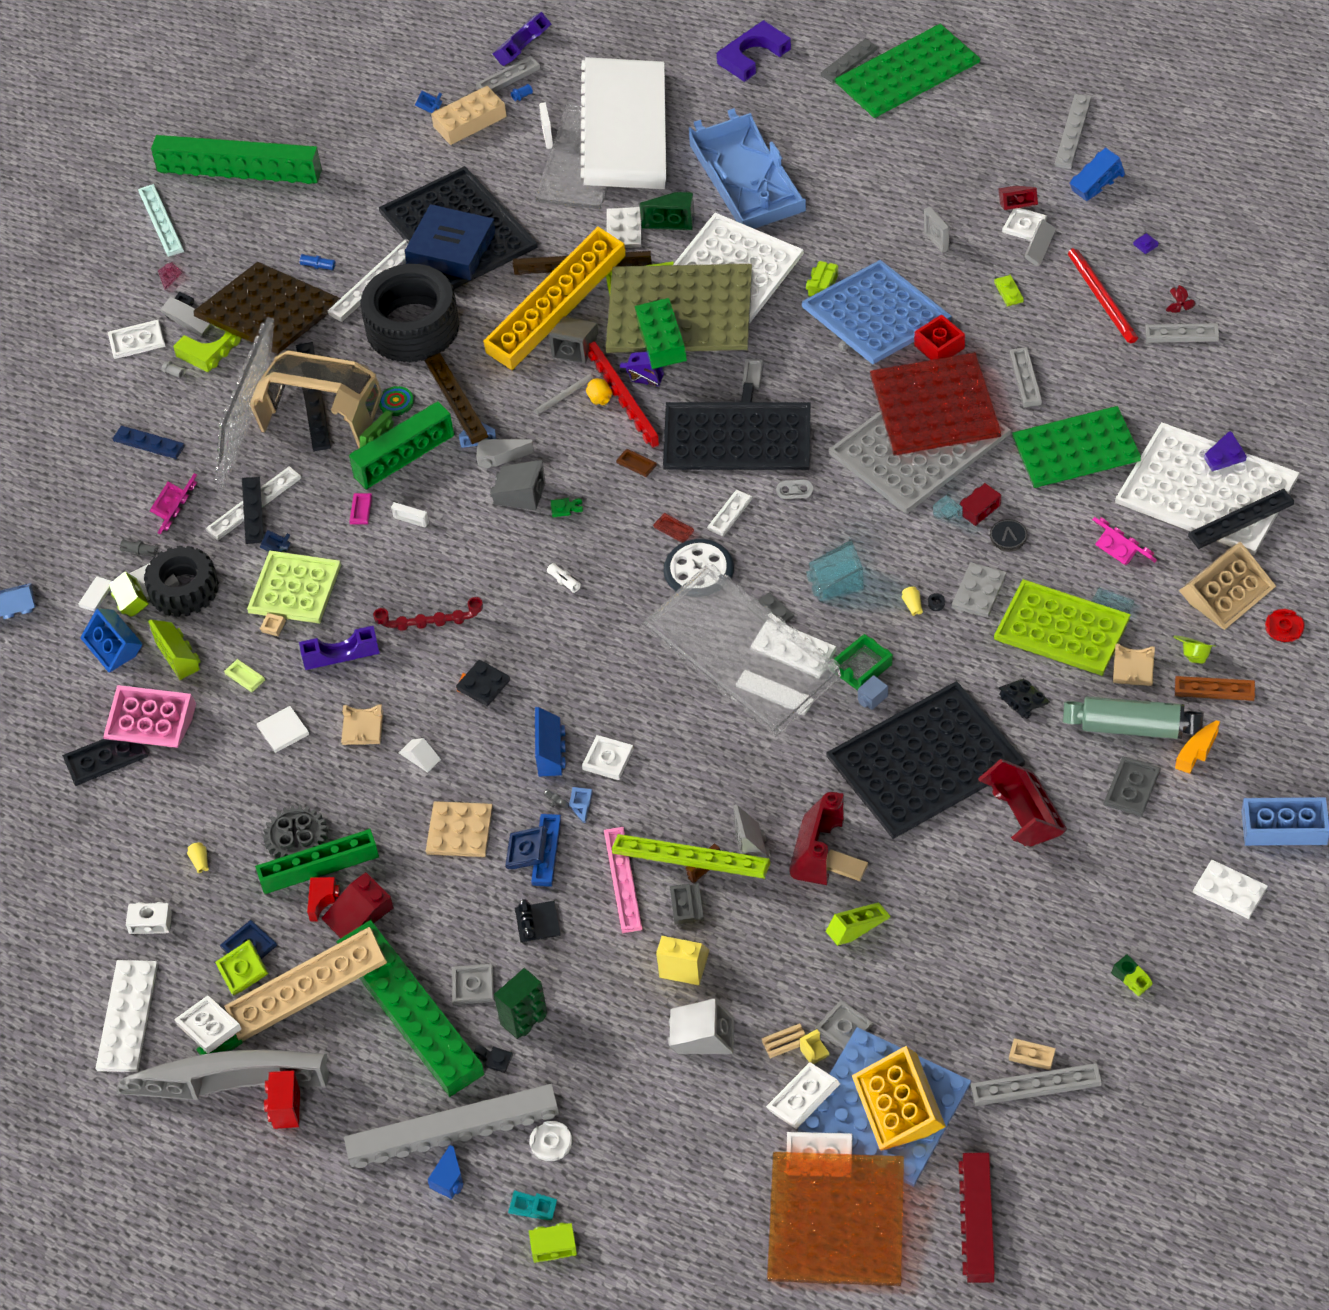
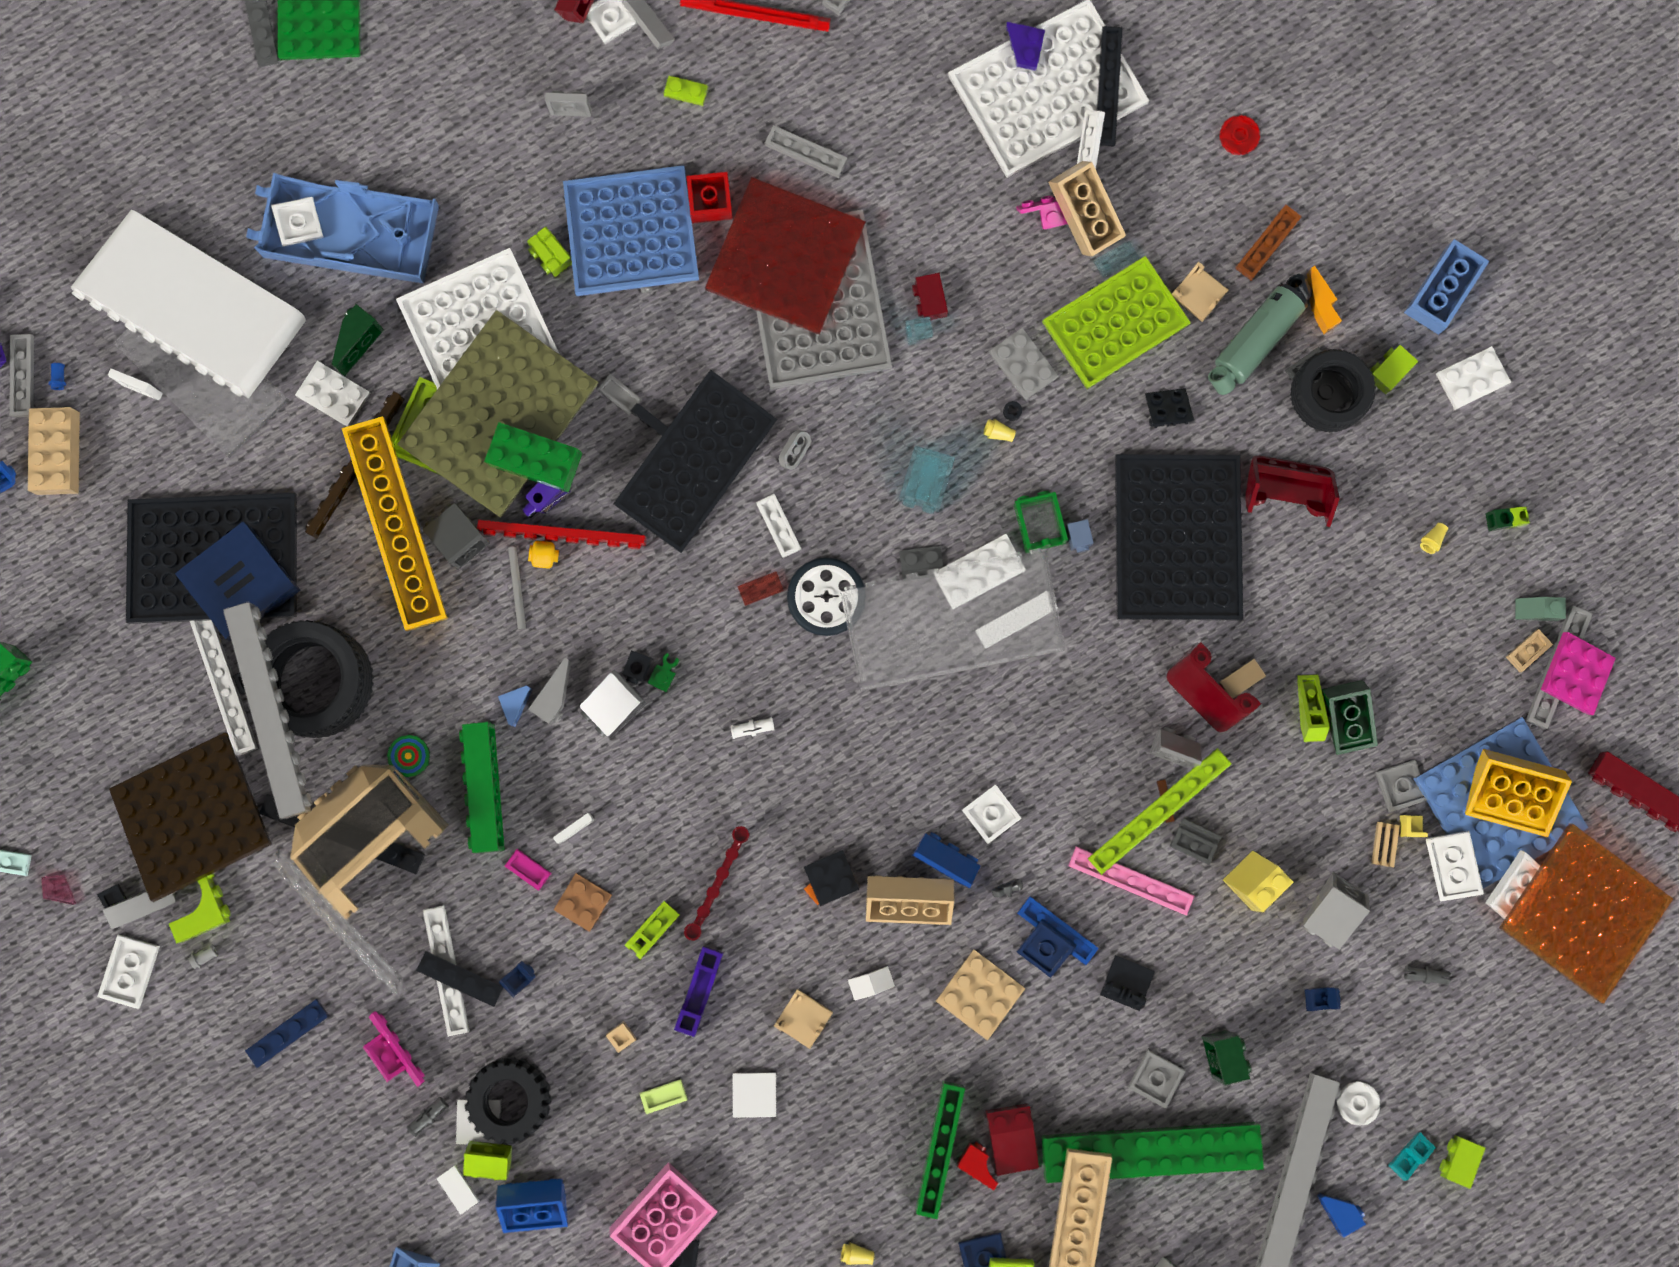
camera: 65 degrees left, 30 degrees up
(174, 648) = (590, 1150): lime slope -> none
(276, 836) = (881, 1168): dark grey gear -> none
(294, 586) = (586, 990): yellowish green plate -> none
(317, 262) = (154, 727): blue pin -> none
(359, 551) = (583, 902): none -> medium nougat plate
(366, 600) = (652, 929): none -> lime plate
(368, 287) = (267, 710): none -> light grey brick
(380, 426) = (447, 804): bright green wing -> none
(456, 399) = (458, 699): dark brown plate -> none
(495, 1059) = (1248, 1102): black plate -> none
(499, 733) = (909, 900): none -> tan brick
(557, 486) = (634, 658): none -> black brick
(580, 802) = (1023, 868): medium blue slope -> none
(619, 1061) = (1322, 998): none -> dark blue bracket
(636, 462) = (655, 573): reddish brown tile -> none
(695, 1131) = (1427, 975): none -> dark grey pin
(728, 144) = (297, 221): none -> white tile
(760, 35) = (161, 87): dark purple arch -> none
(871, 953) = (1350, 716): none -> dark green slope
(1008, 535) = (980, 296): black tile -> none
(1040, 1097) = (1578, 673): none -> dark pink plate
(1068, 932) = (1433, 539): none -> light yellow cone
(1075, 1043) = (1540, 608): none -> sand green slope
(1076, 446) = (922, 166): green plate -> none
(1128, 548) = (1087, 208): none -> tan brick
(1132, 761) = (1348, 366): none -> black tyre
(1185, 529) = (1091, 136): none -> white tile
(1185, 825) = (1393, 368): none -> lime brick
(1195, 650) = (1217, 227): lime piece -> none
(1228, 586) = (1168, 151): tan slope -> none

